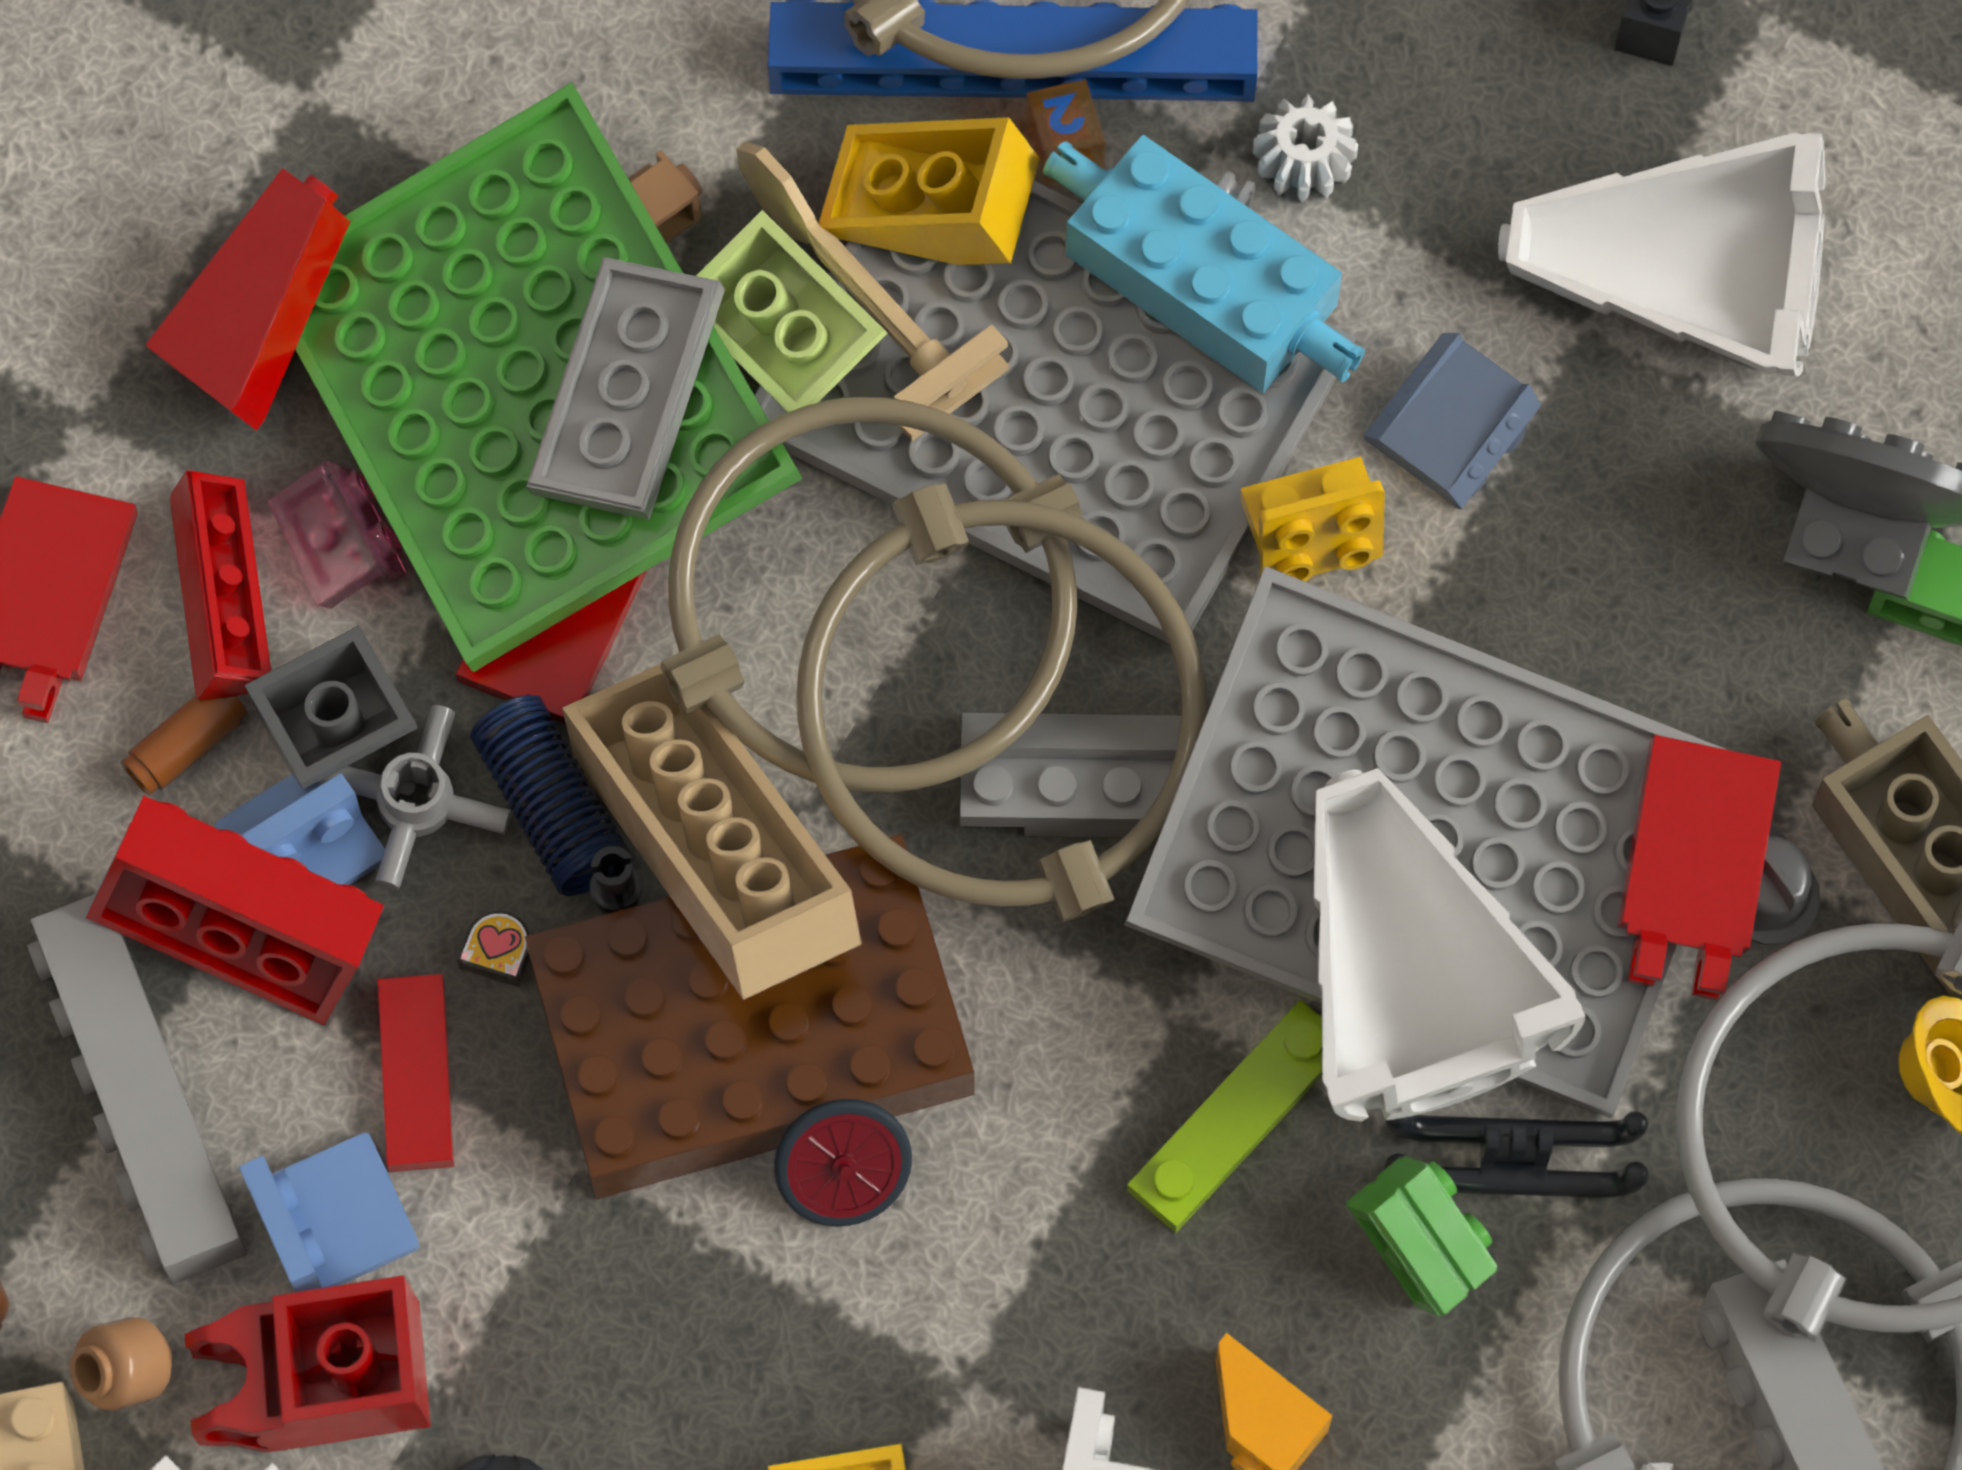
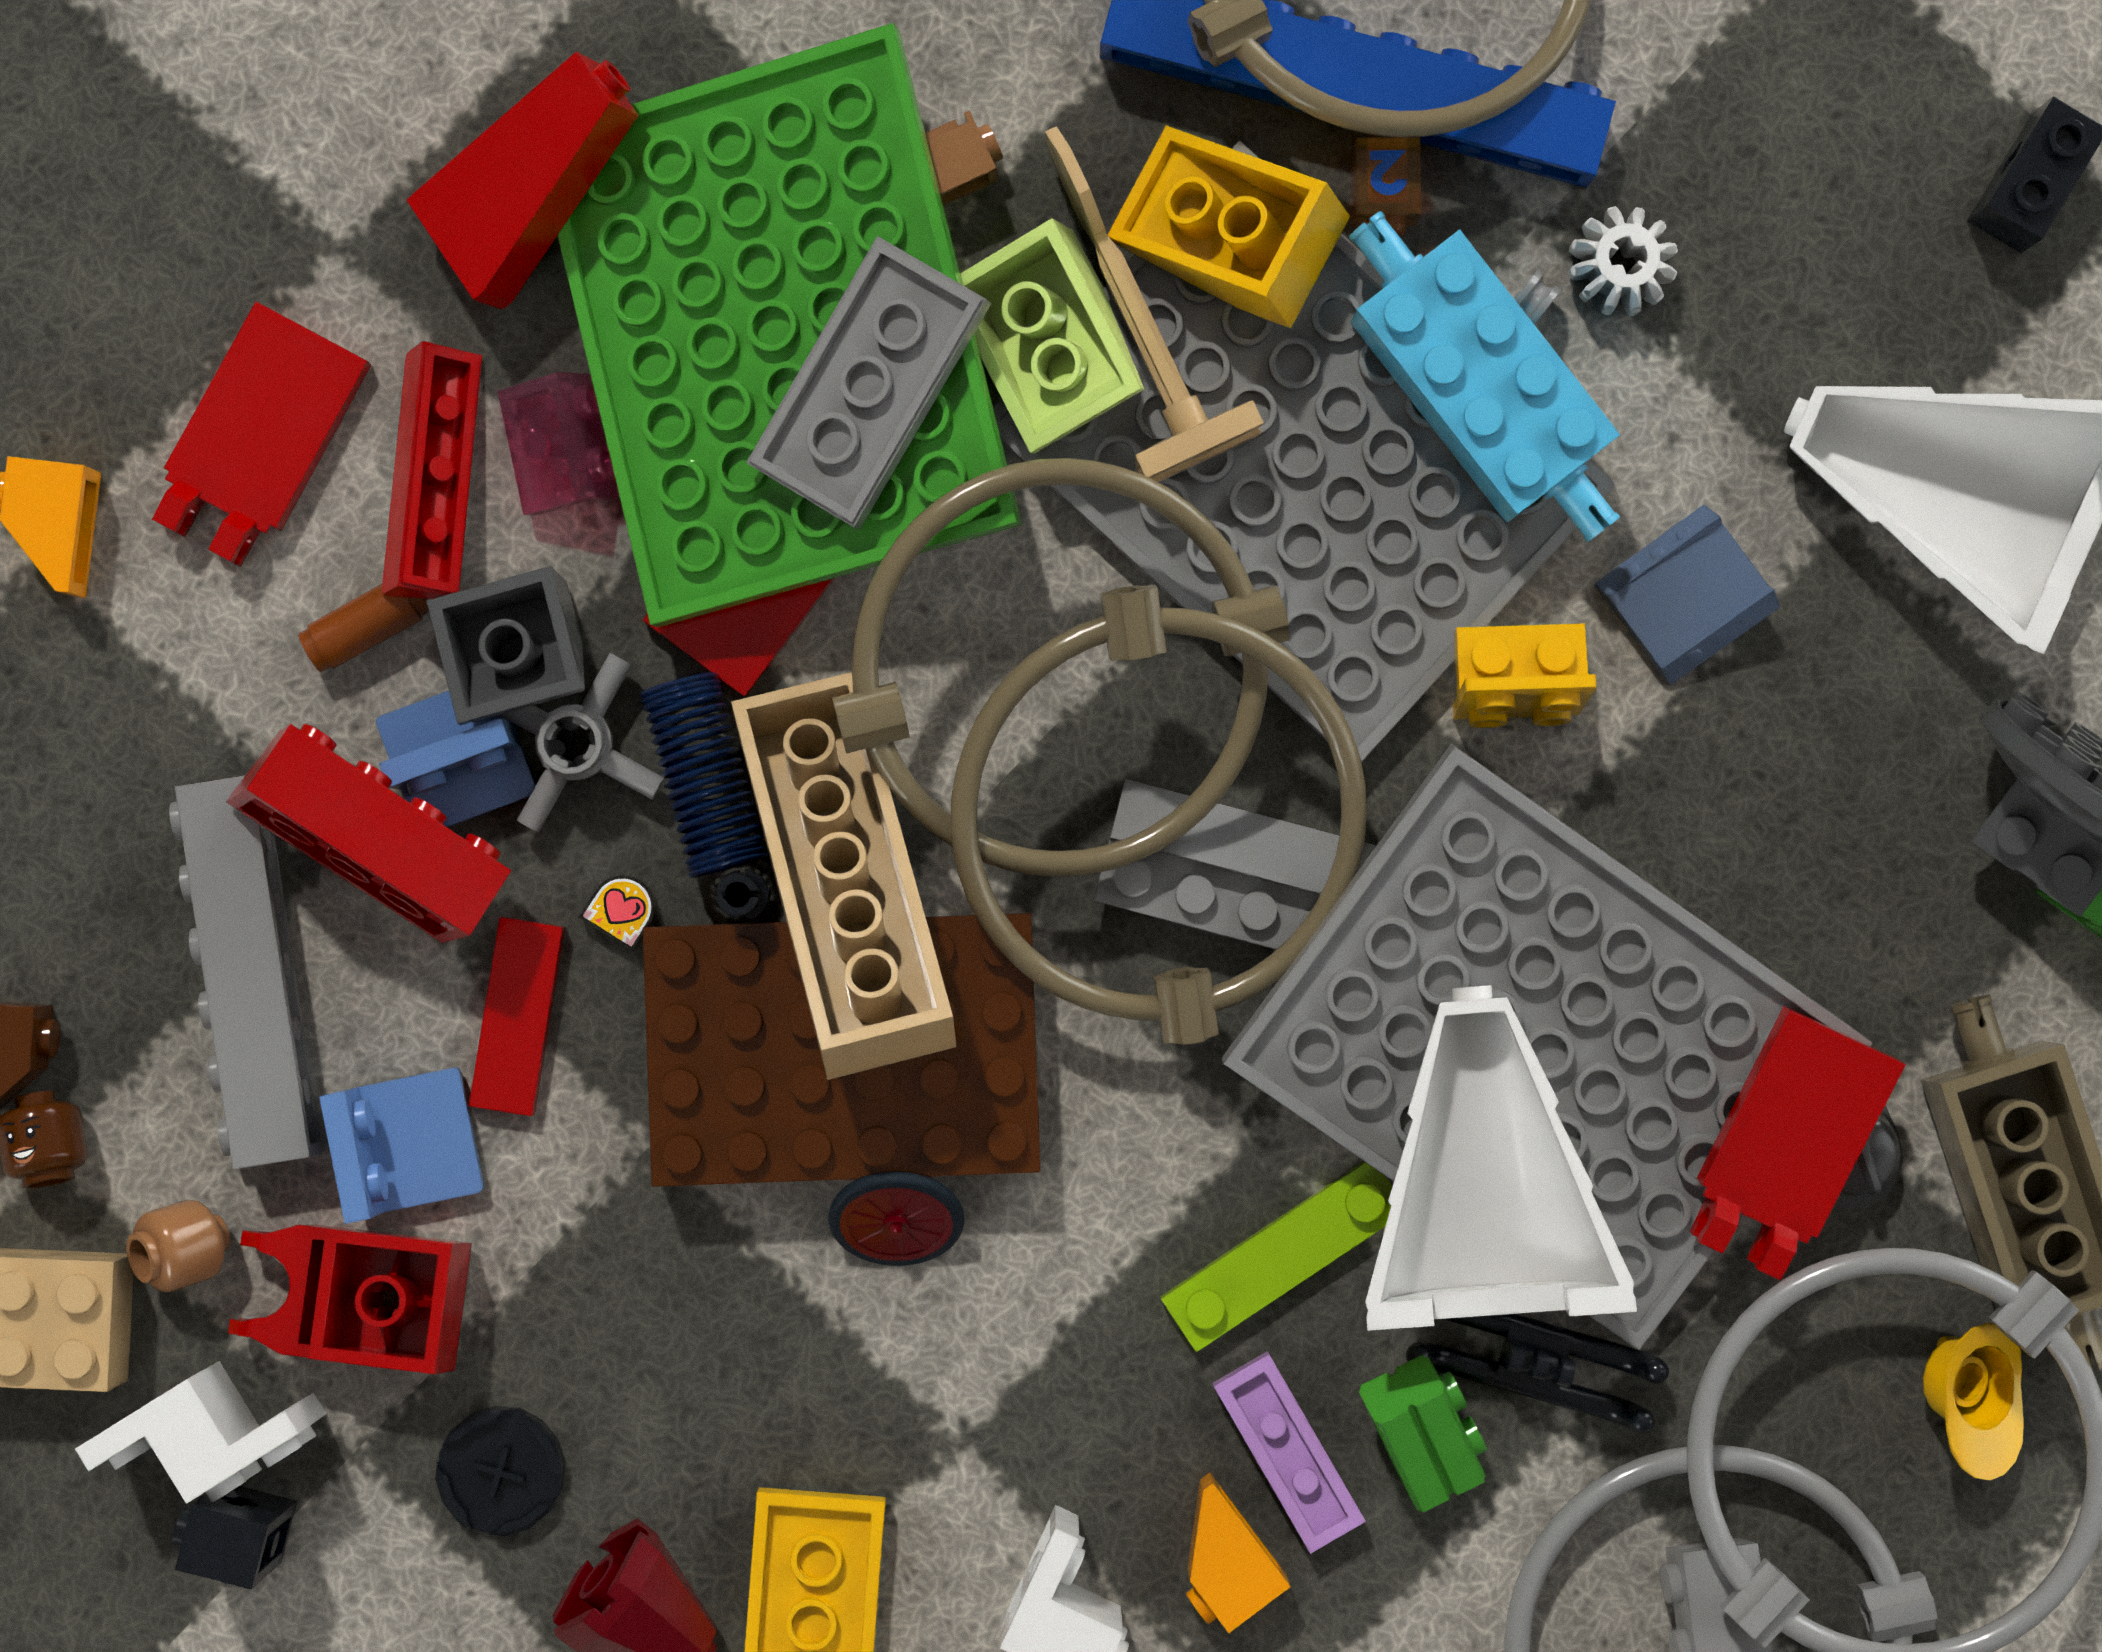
camera: 15 degrees right, 20 degrees up
(1296, 1300) = (1288, 1452): none -> lavender plate

